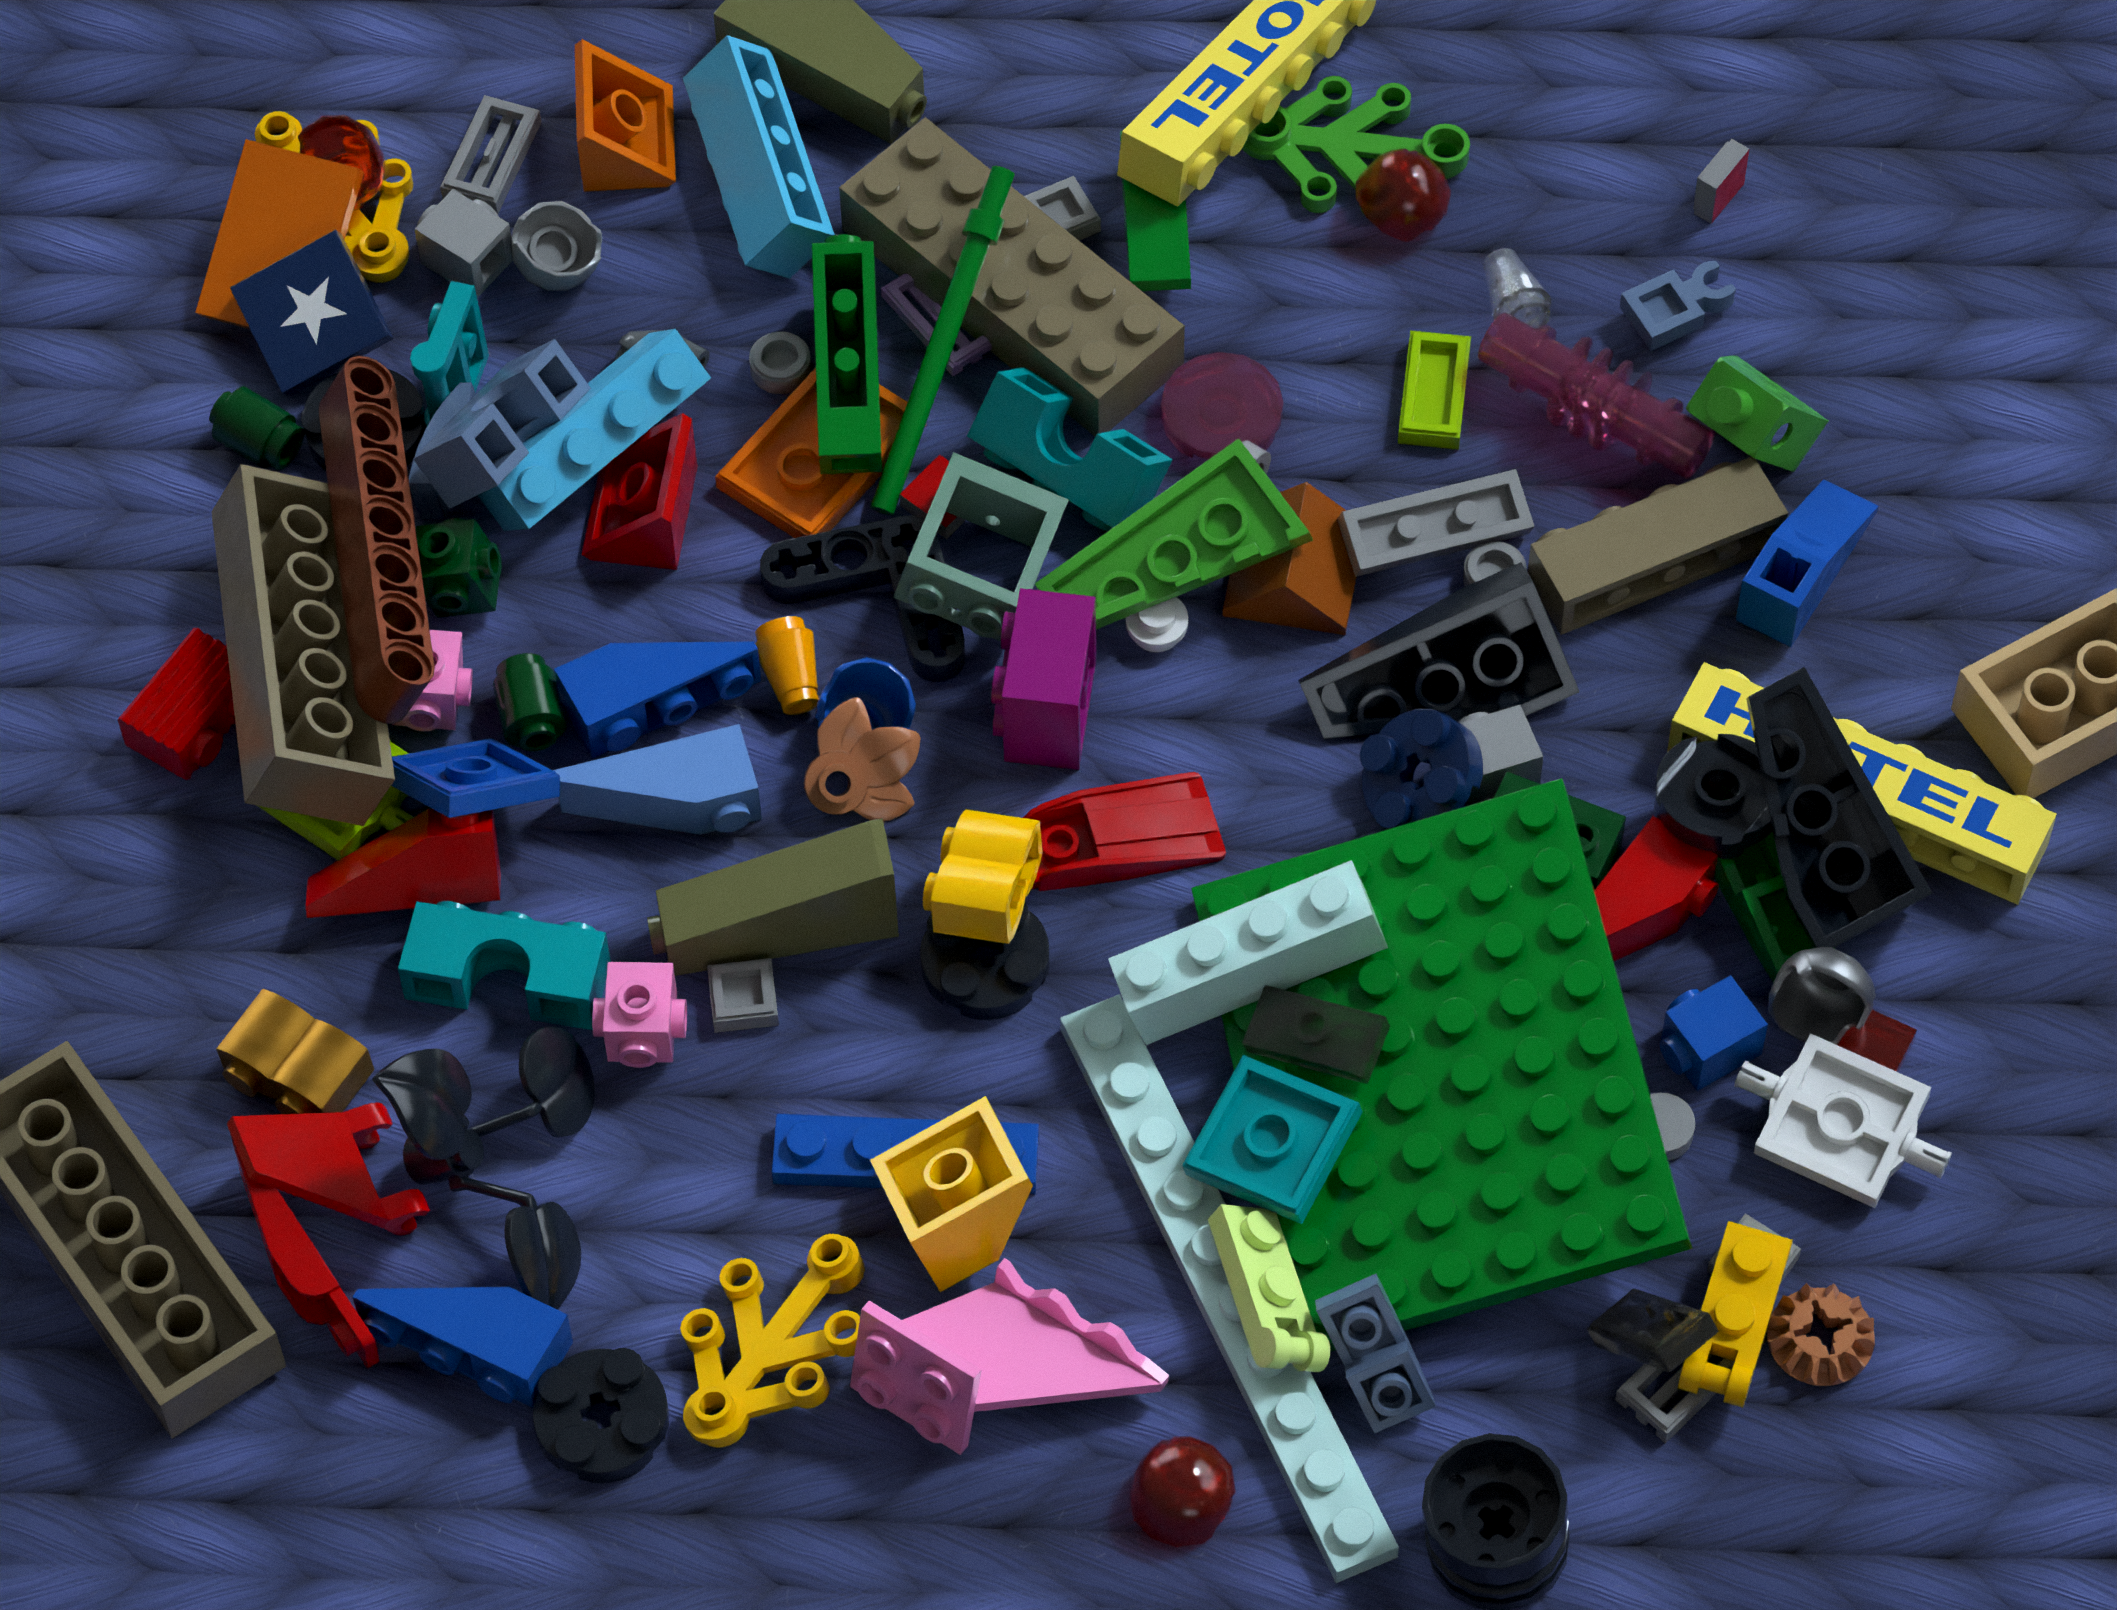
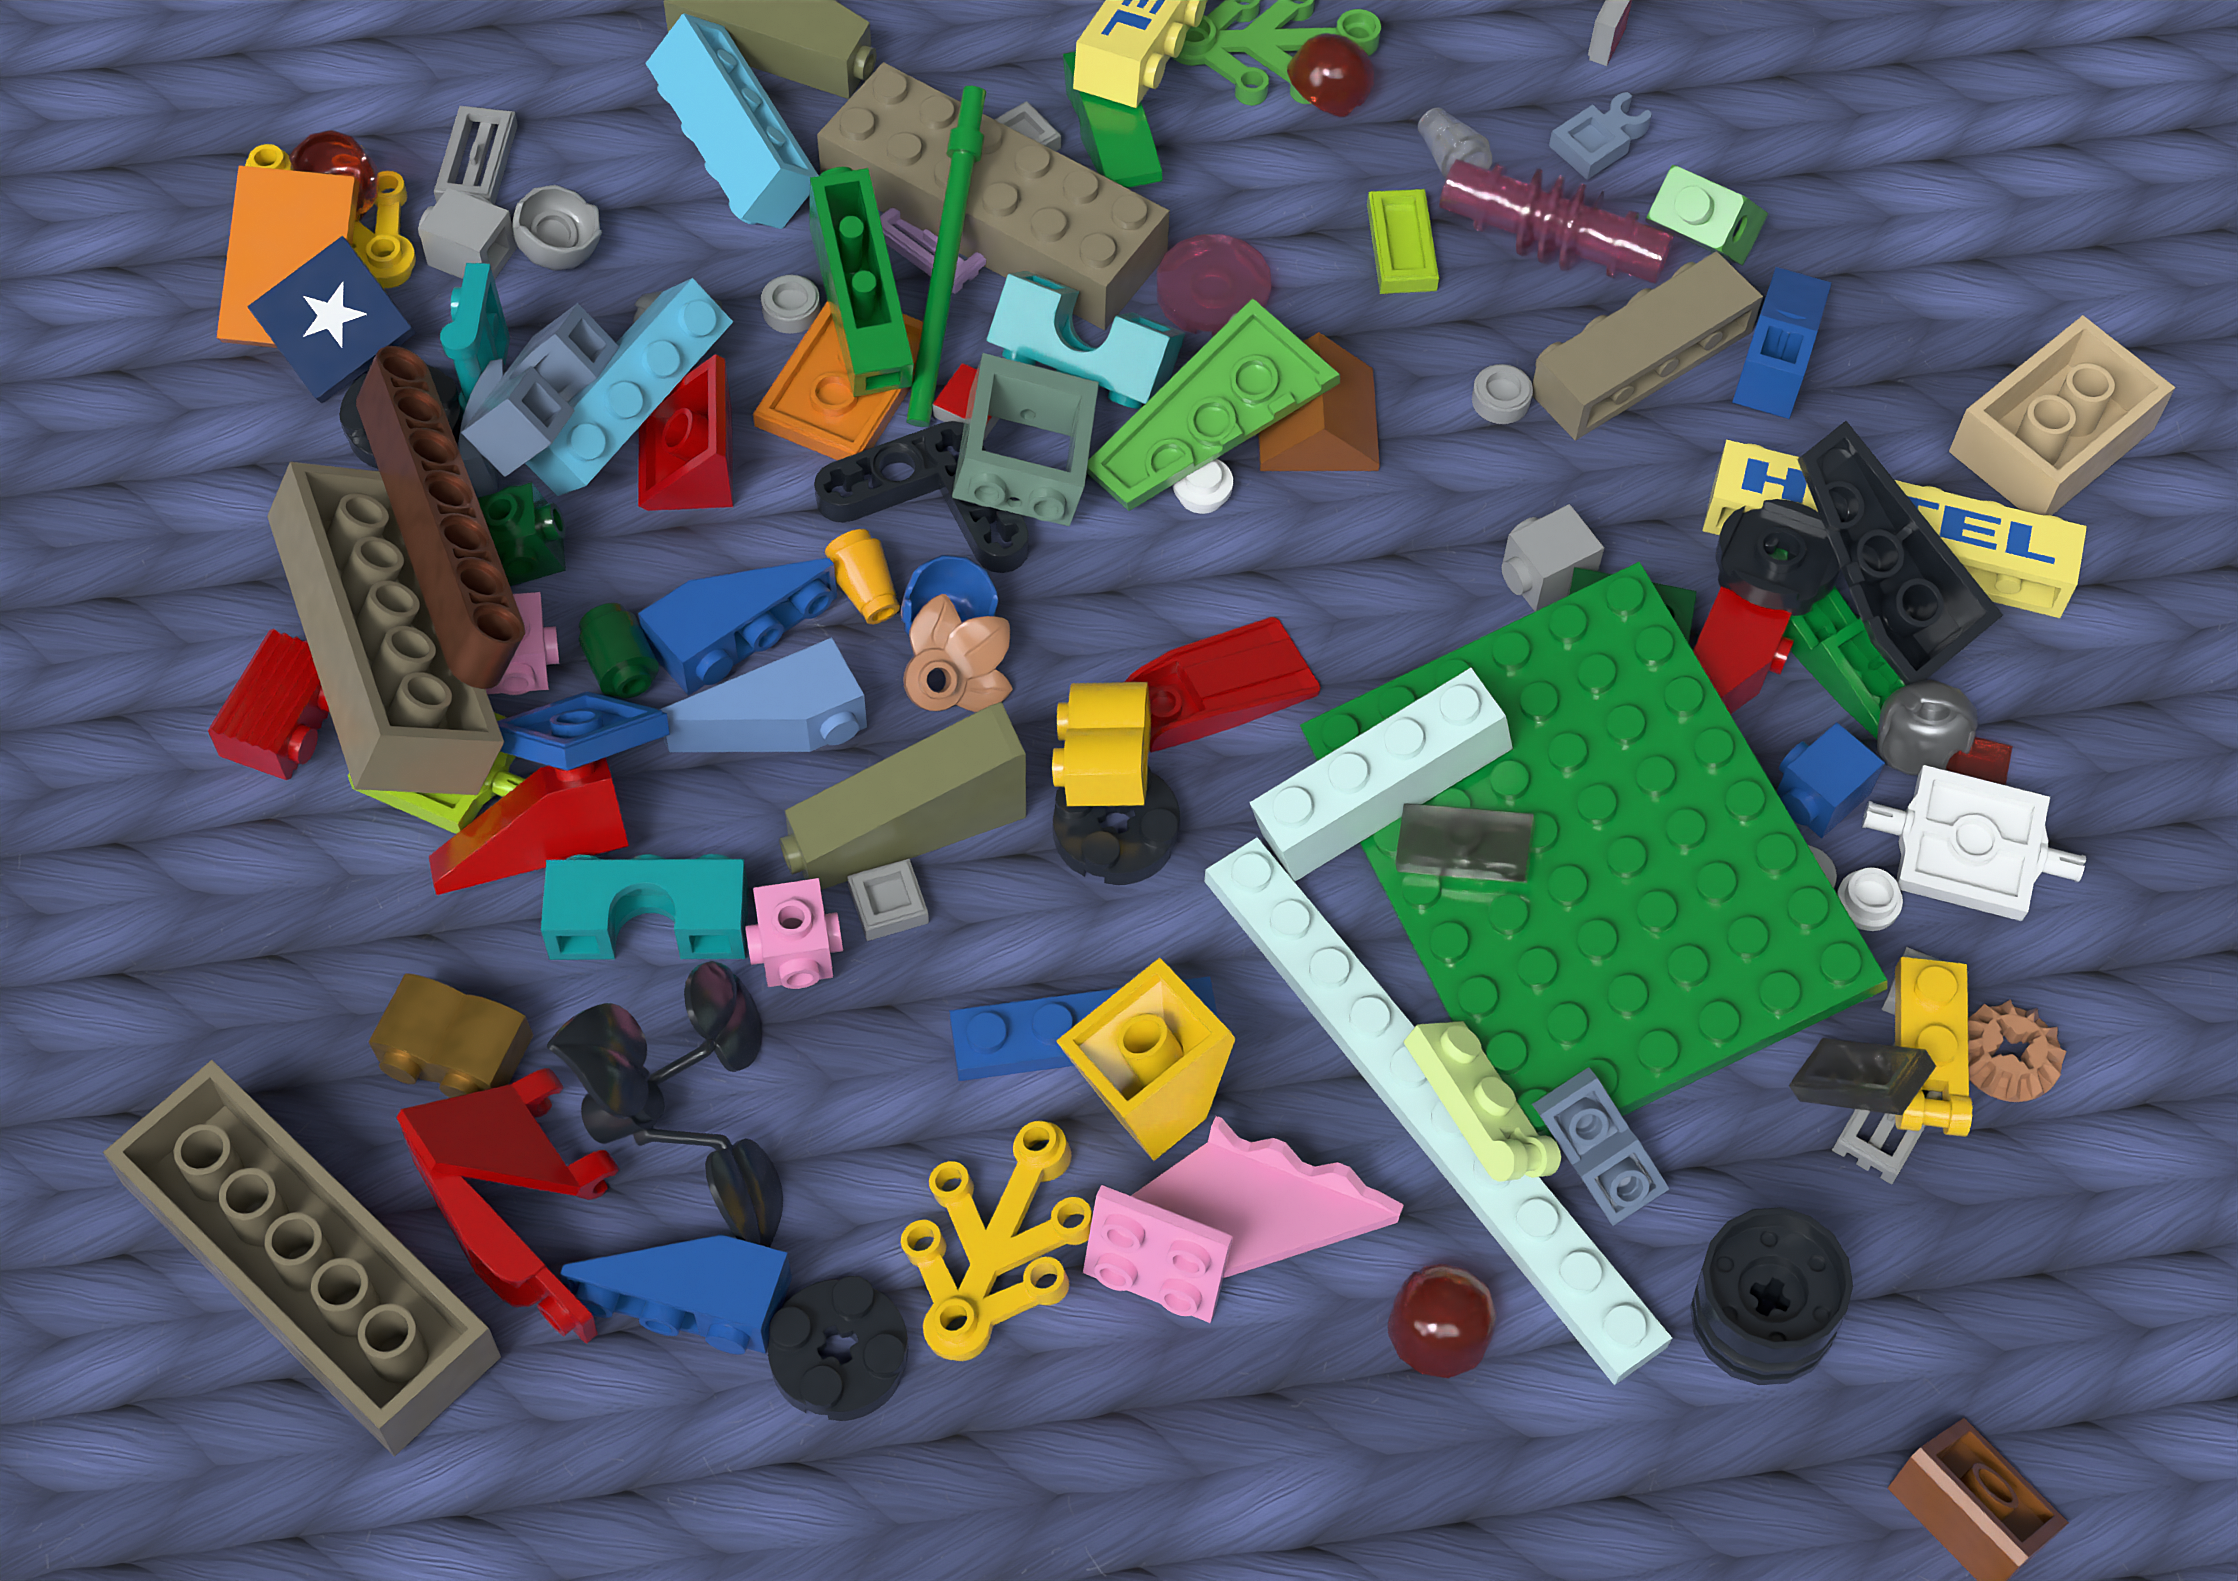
camera: 15 degrees left, 0 degrees up
(256, 428) = (295, 433): dark green brick -> none
(622, 123) = (595, 112): orange slope -> none
(1045, 678) = (1118, 548): magenta brick -> none
(1272, 1139) = (1449, 952): teal plate -> none
(1397, 751) = (1467, 558): dark blue plate -> none
(1435, 522) = (1439, 355): light grey plate -> none
(1459, 657) = (1487, 477): black wedge -> none
(1722, 1160) = (1871, 898): none -> white plate

